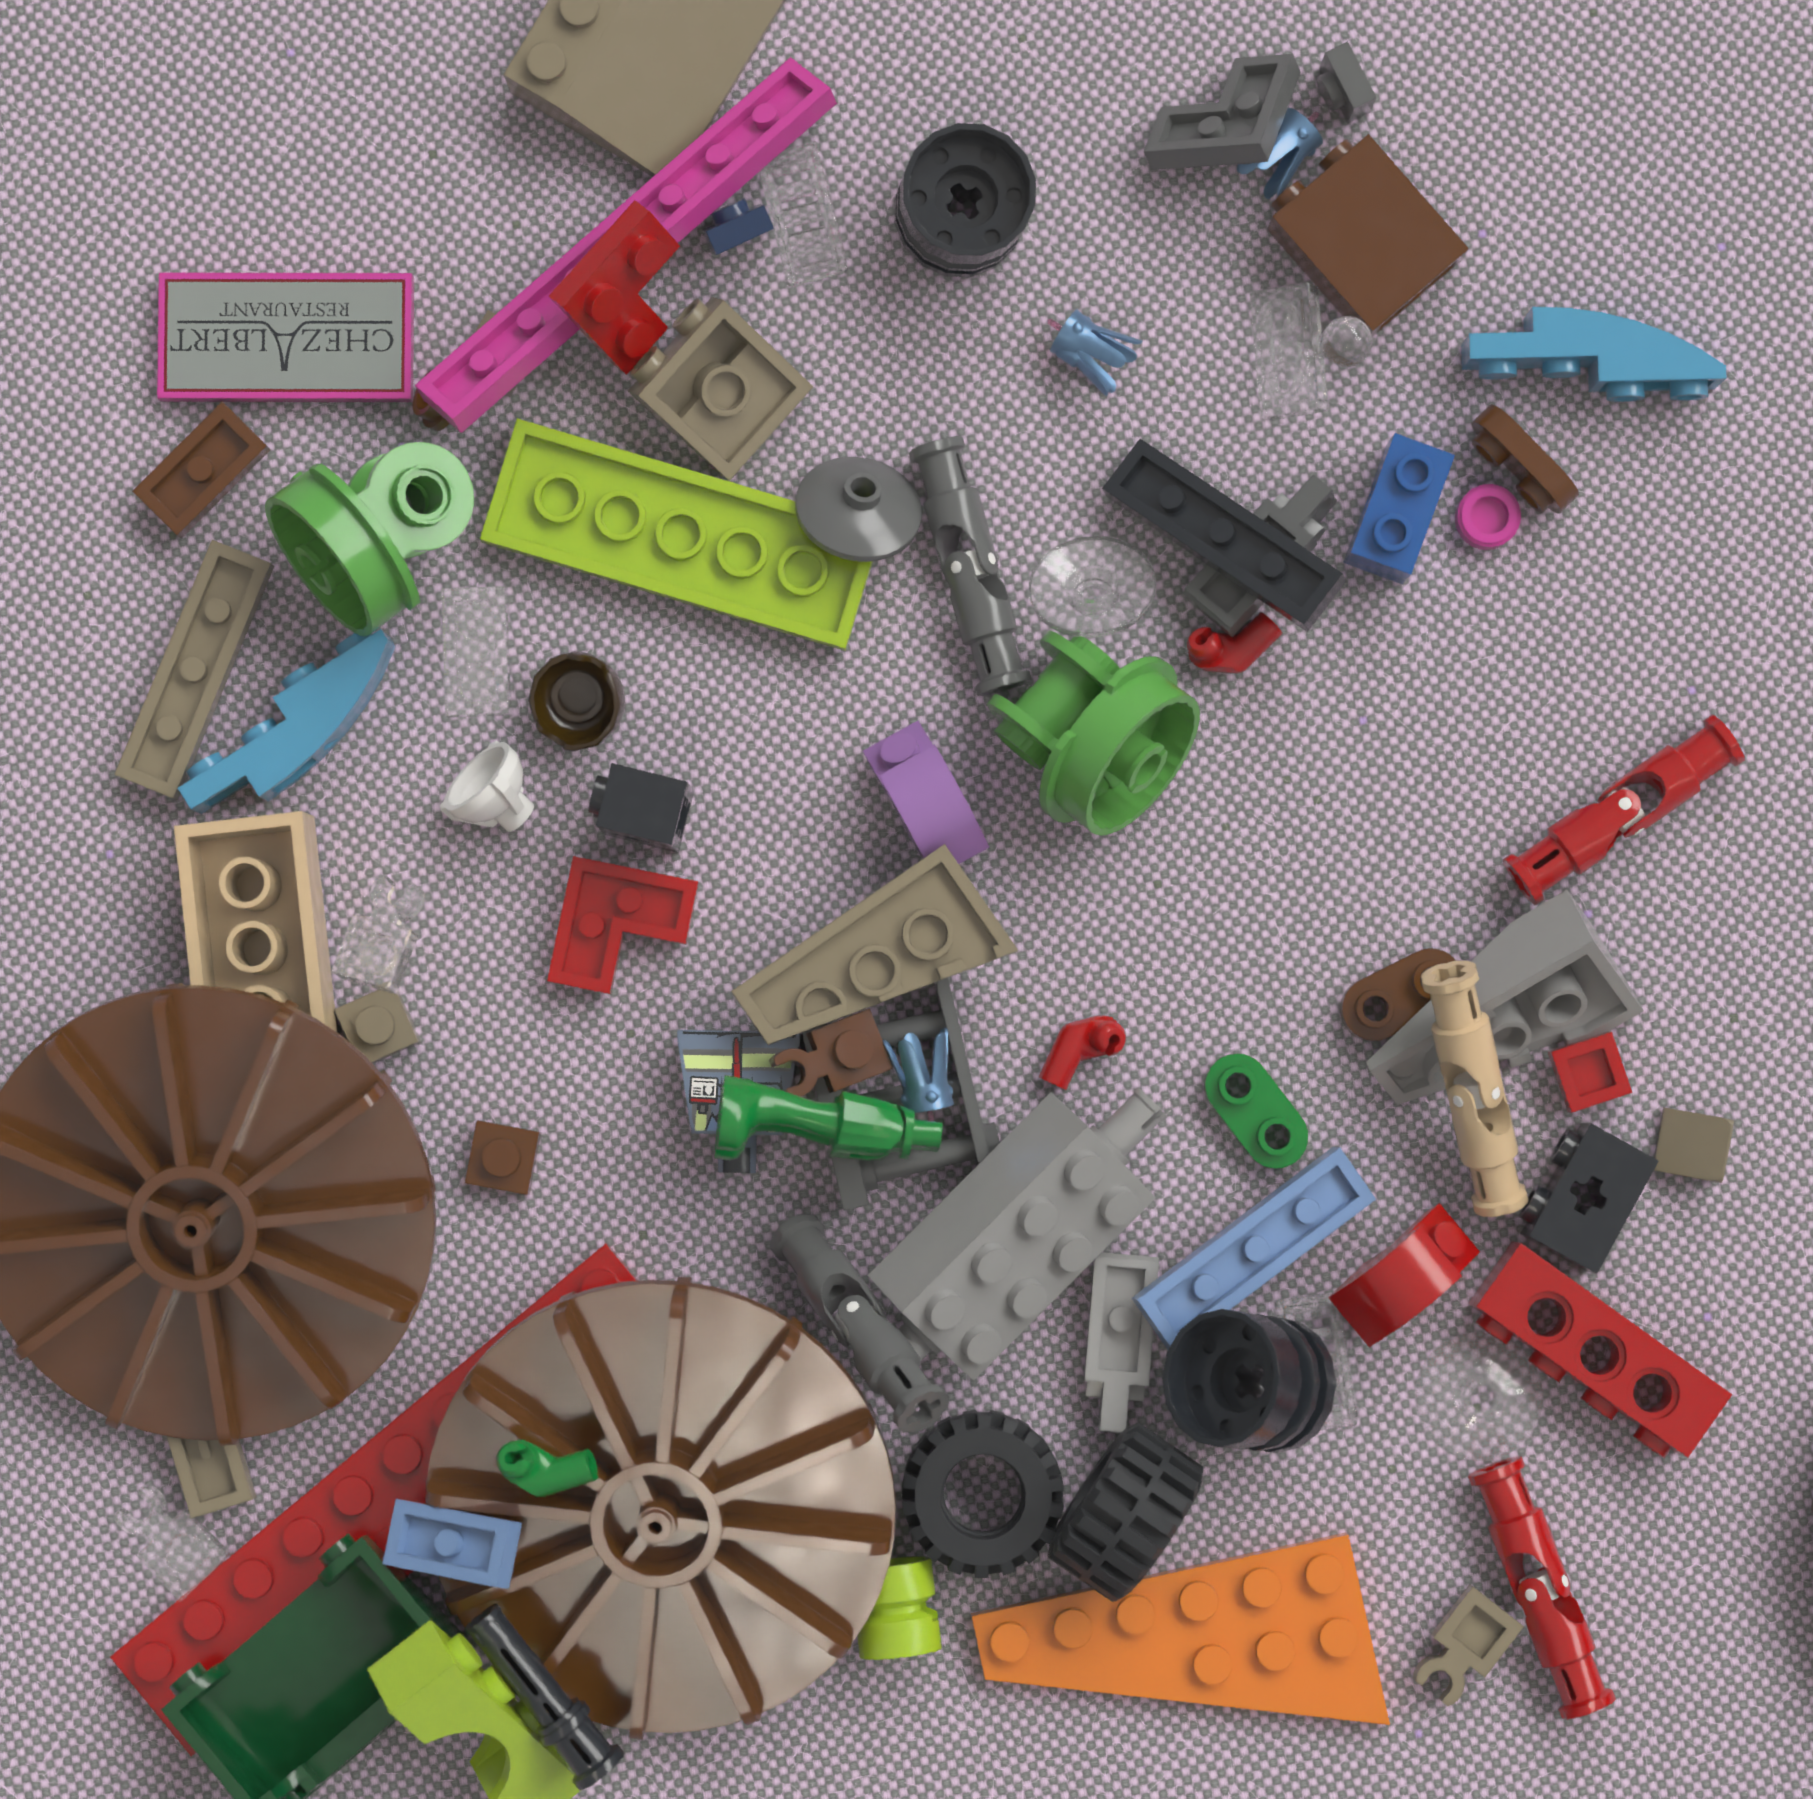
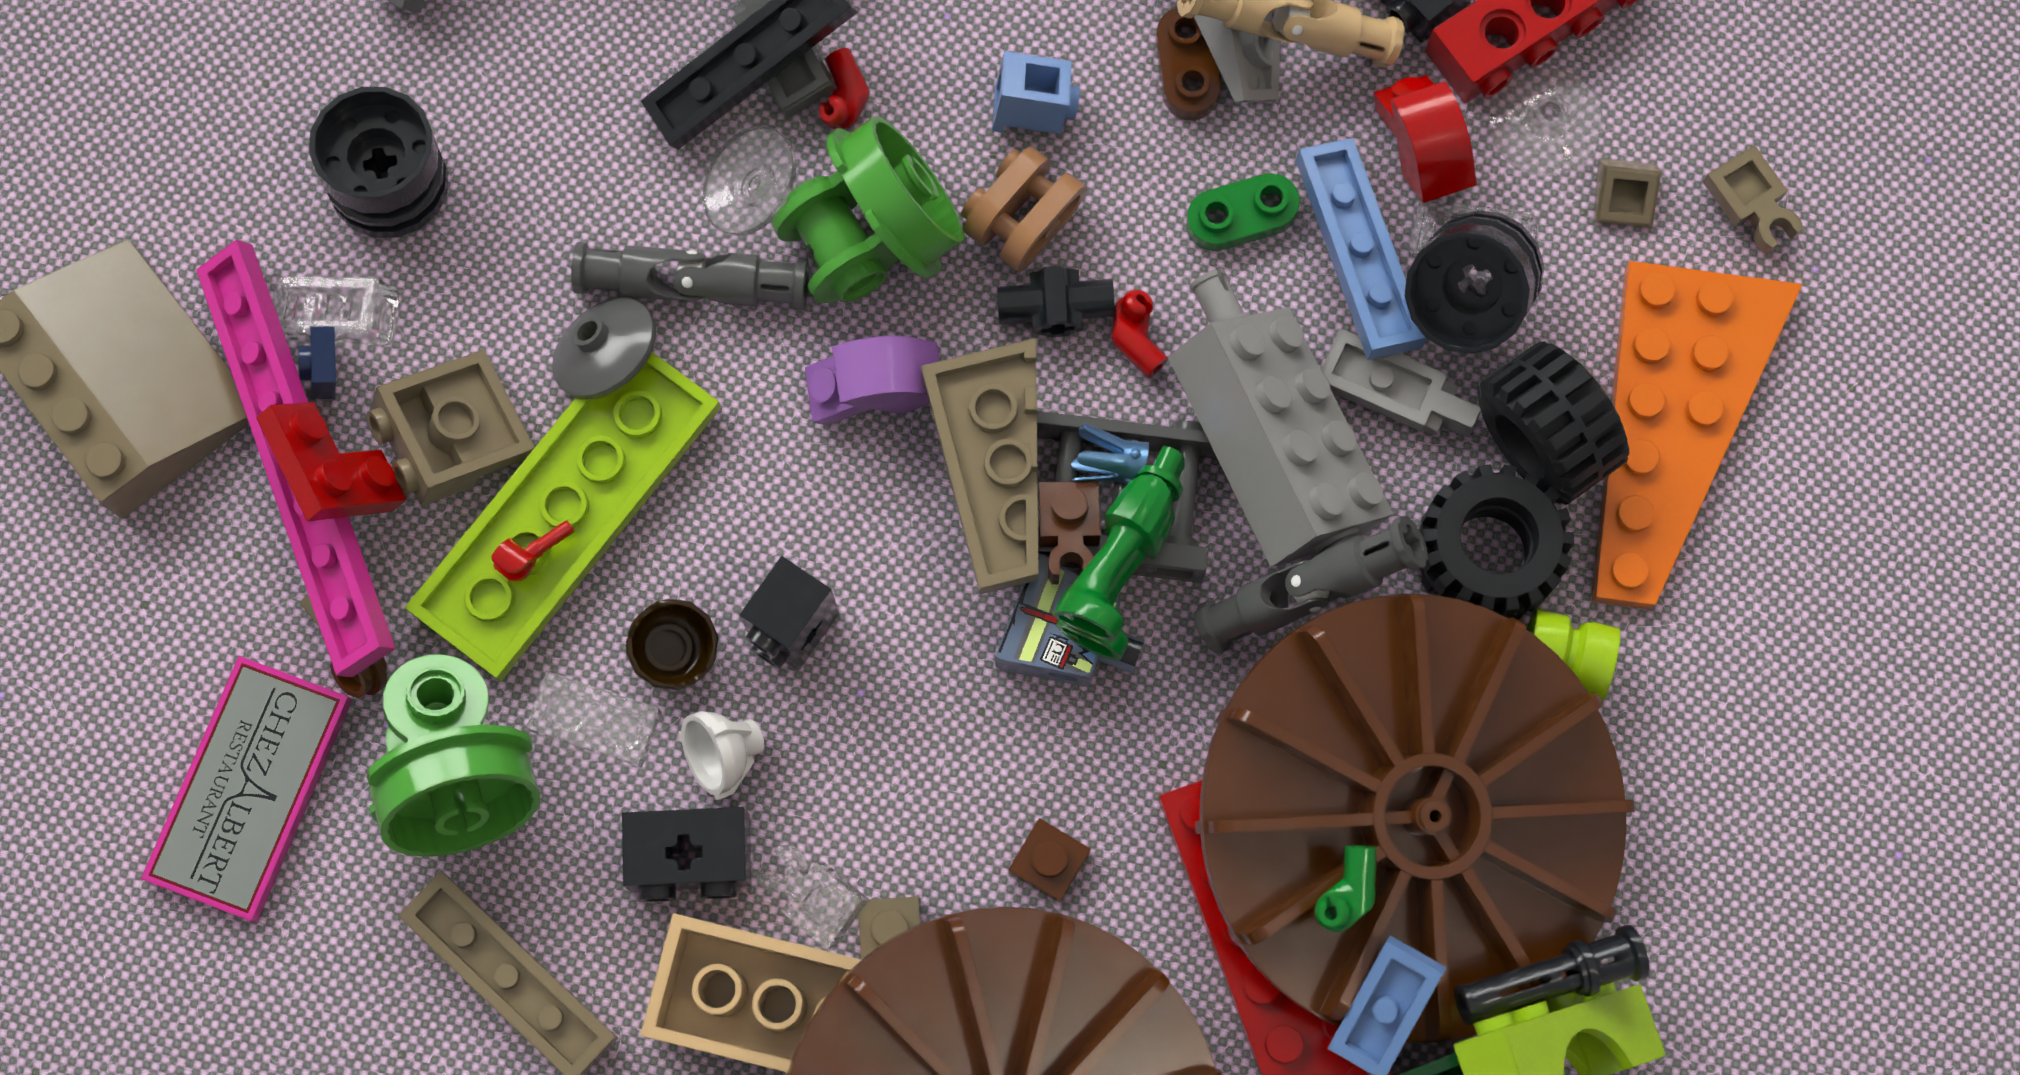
camera: 70 degrees left, 10 degrees down
(201, 470) = (332, 905): reddish brown plate -> none
(318, 713) = (591, 880): dark azure slope -> none
(406, 820) = (654, 837): none -> black brick
(600, 513) = (516, 562): none -> red hand
(602, 905) = (861, 688): red plate -> none
(1081, 952) = (1056, 301): none -> black axle
(1082, 339) = (534, 114): flat silver piece -> none
(1148, 849) = (1020, 177): none -> medium nougat brick
(1316, 841) = (1034, 93): none -> medium blue brick
(1429, 1507) = (1626, 192): none -> dark tan slope
(1551, 1611) = (1760, 121): red piece -> none

